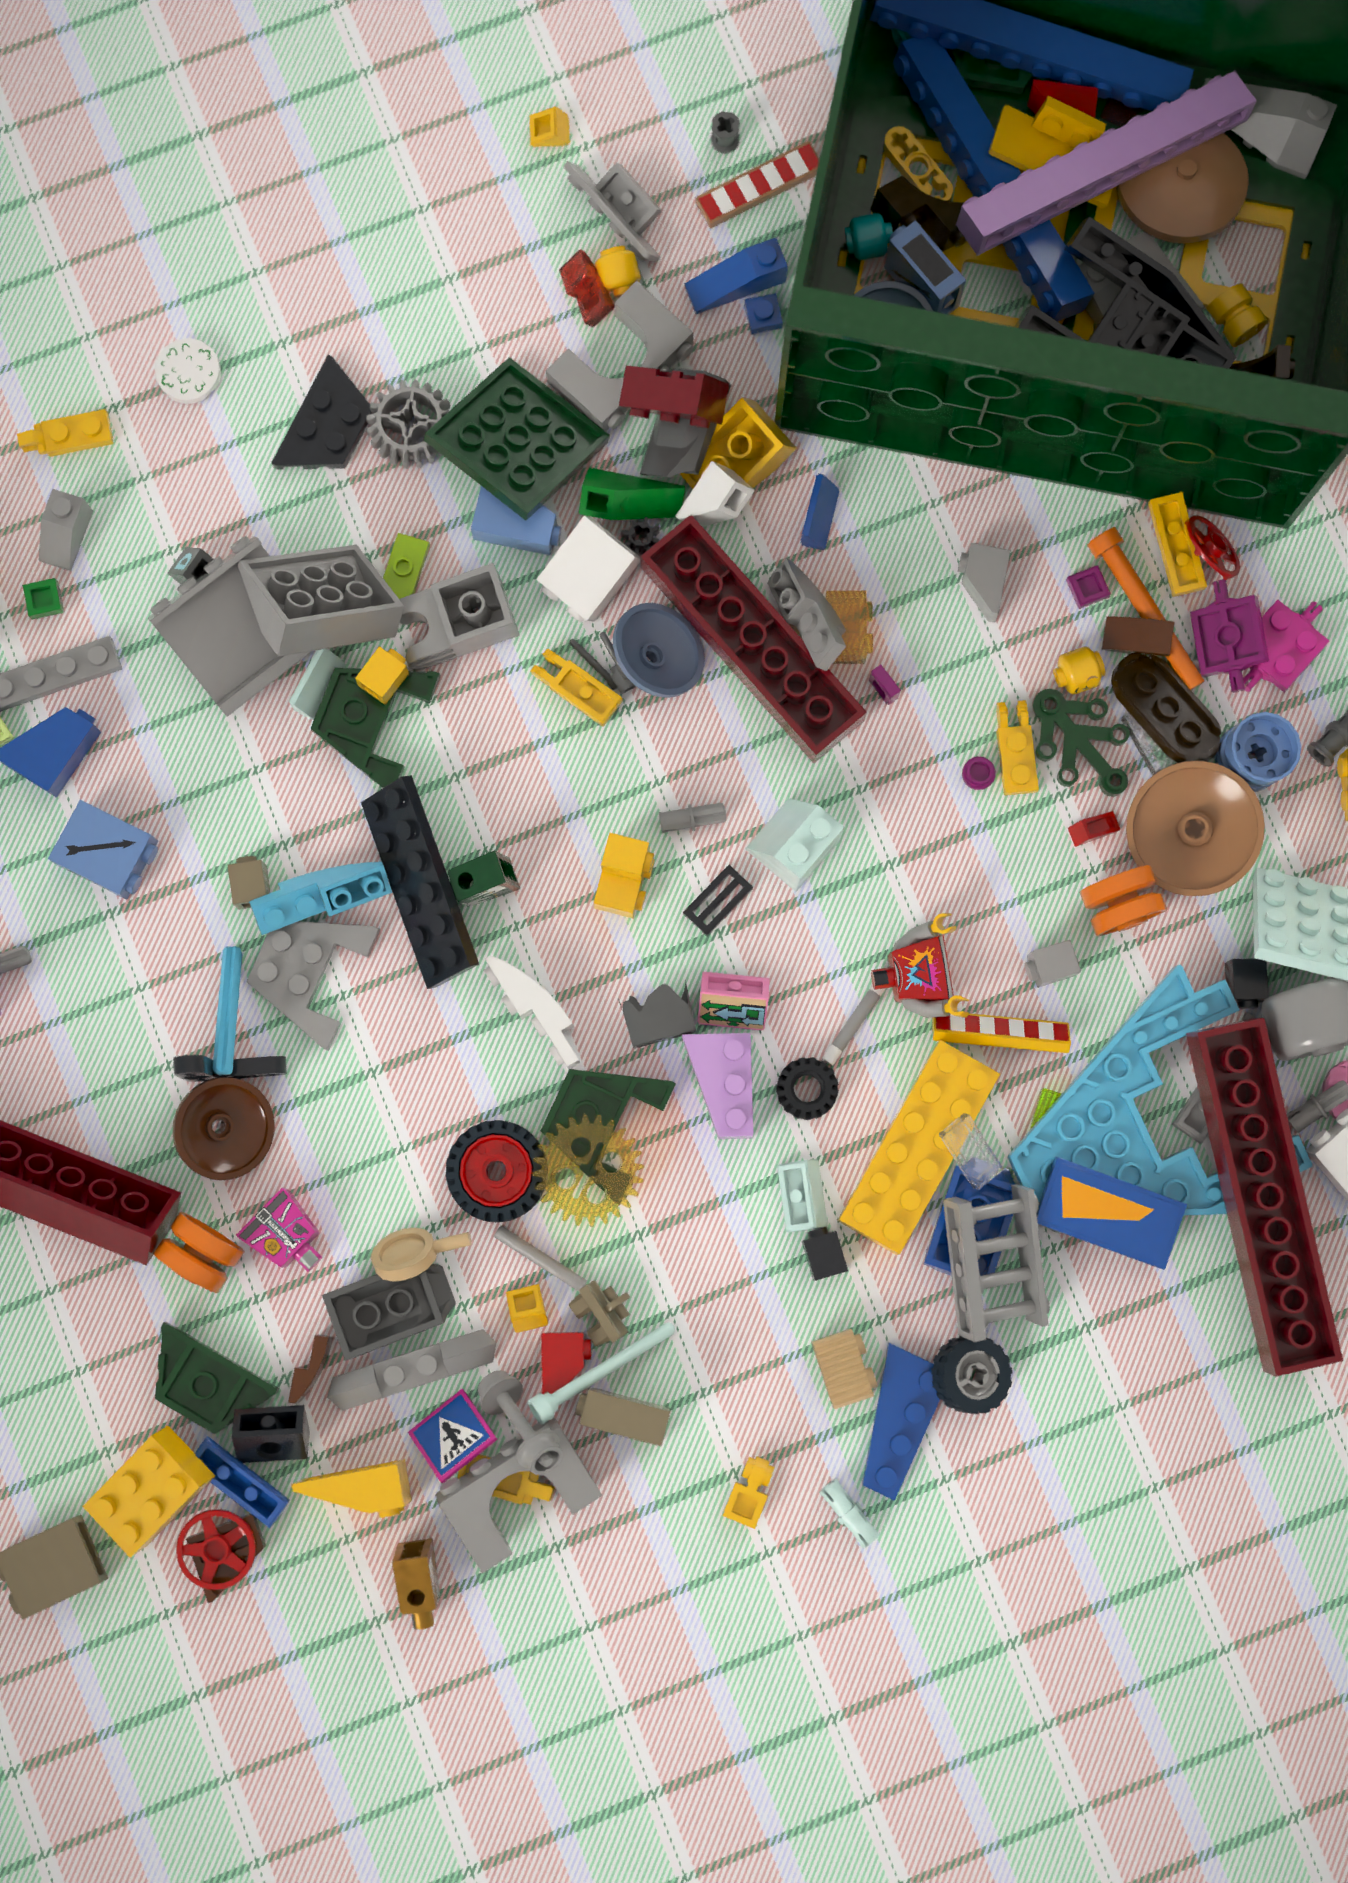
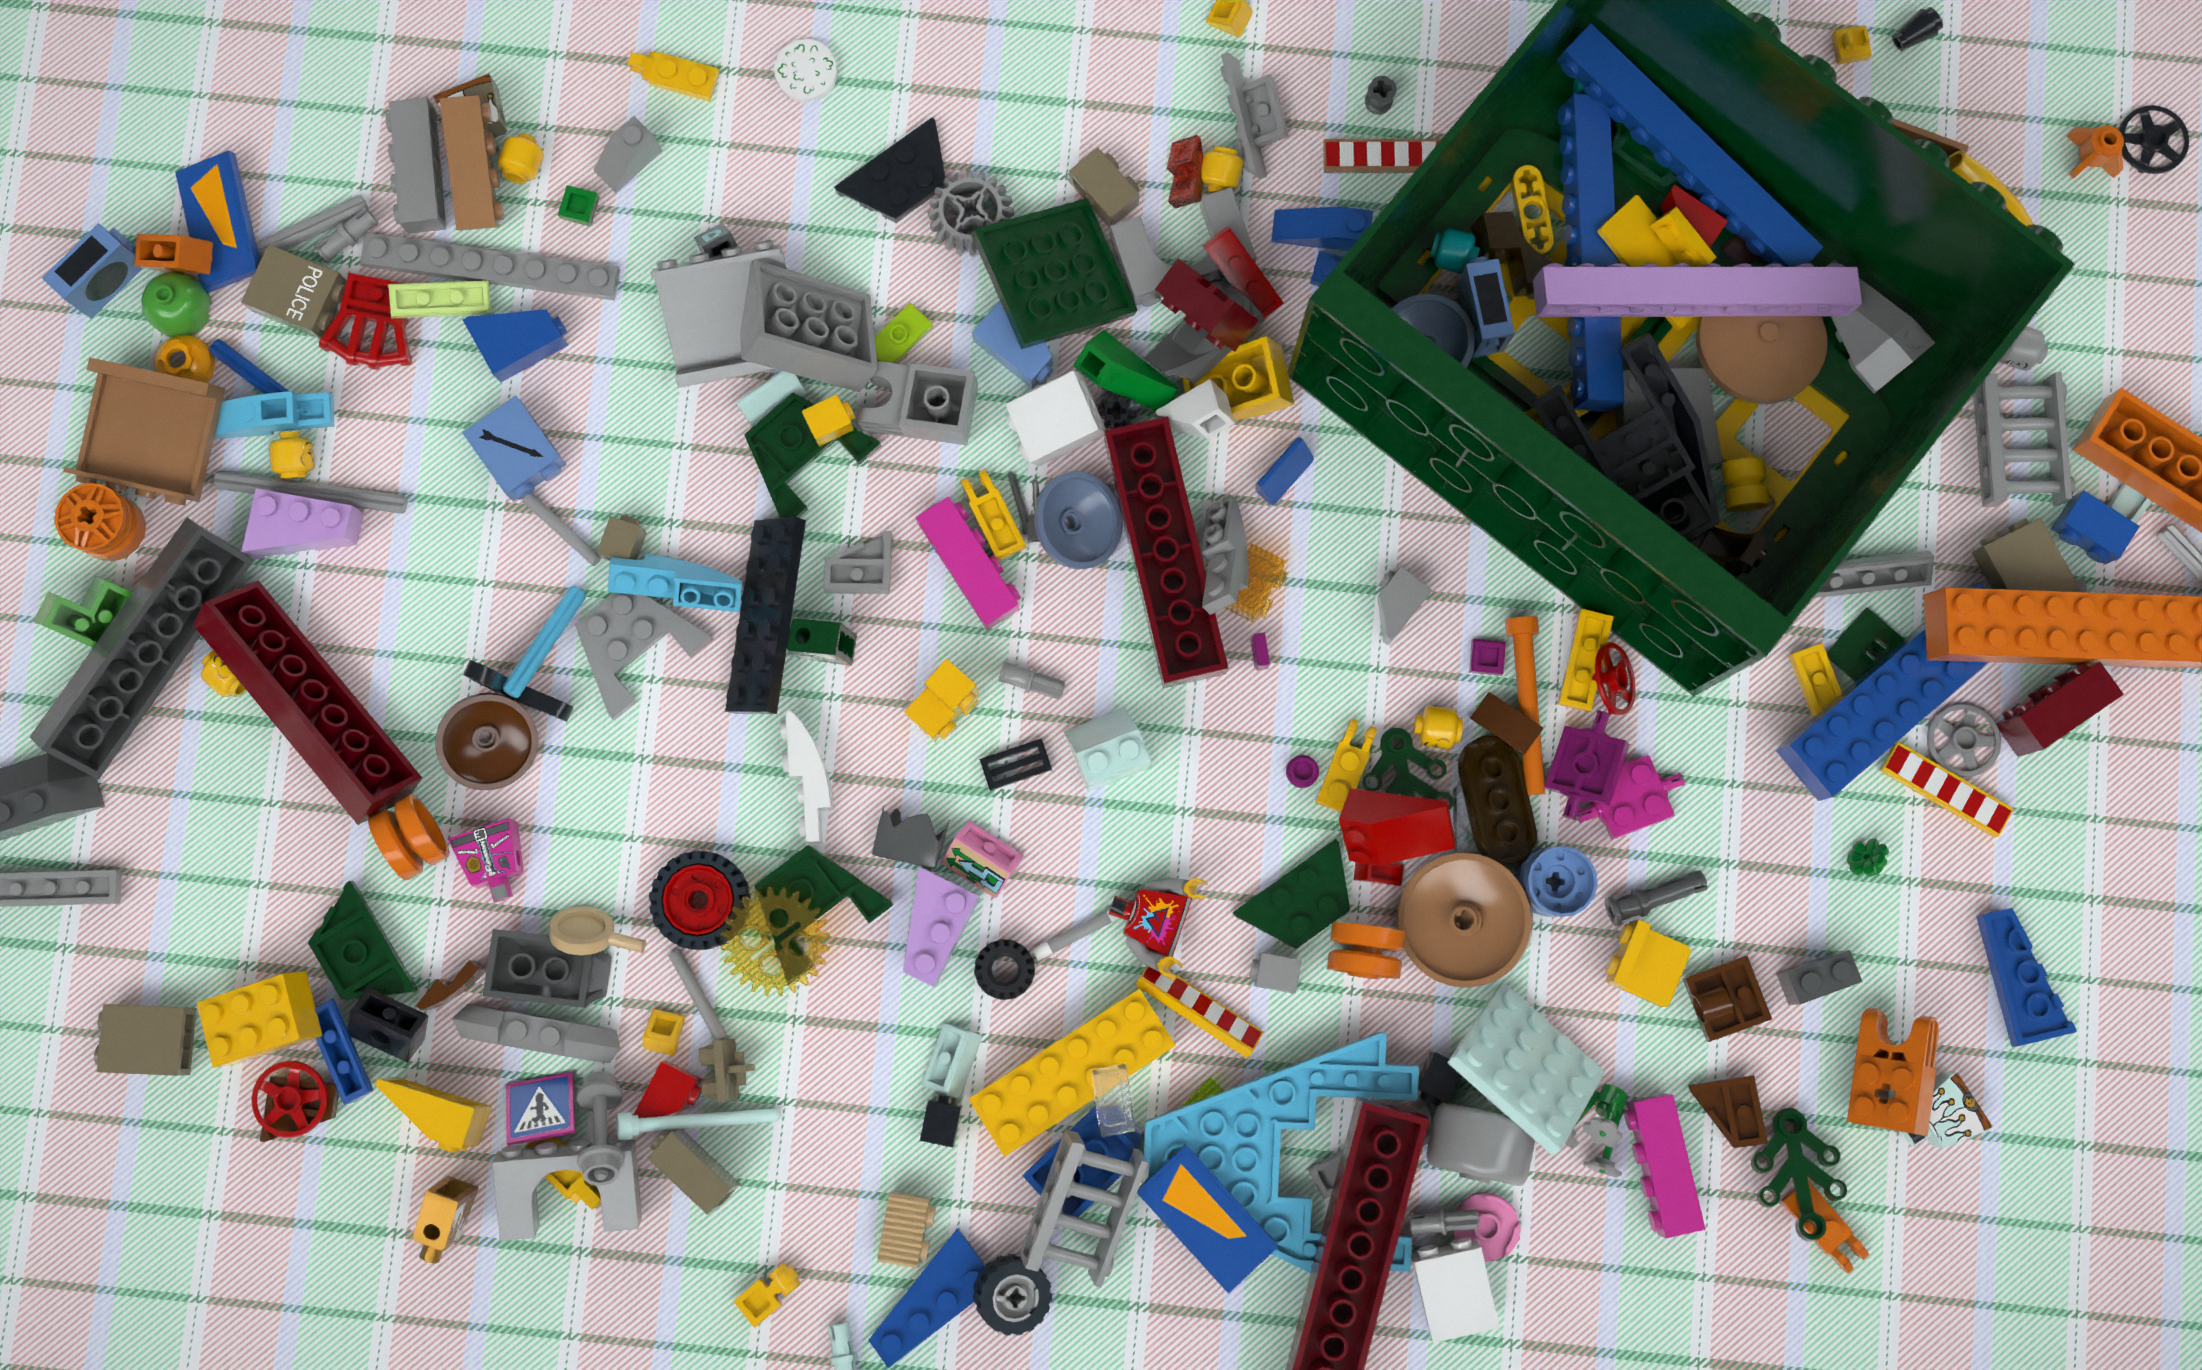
camera: 25 degrees right, 0 degrees up
(186, 901) = (561, 529): none -> light grey bar
(482, 796) = (861, 568): none -> light grey wing
(520, 338) = (1104, 186): none -> dark tan brick
(578, 740) = (968, 563): none -> dark pink brick
(685, 349) = (1242, 271): none -> red tile
(1039, 887) = (1301, 900): none -> dark green wing
(1091, 776) = (1394, 827): none -> red slope

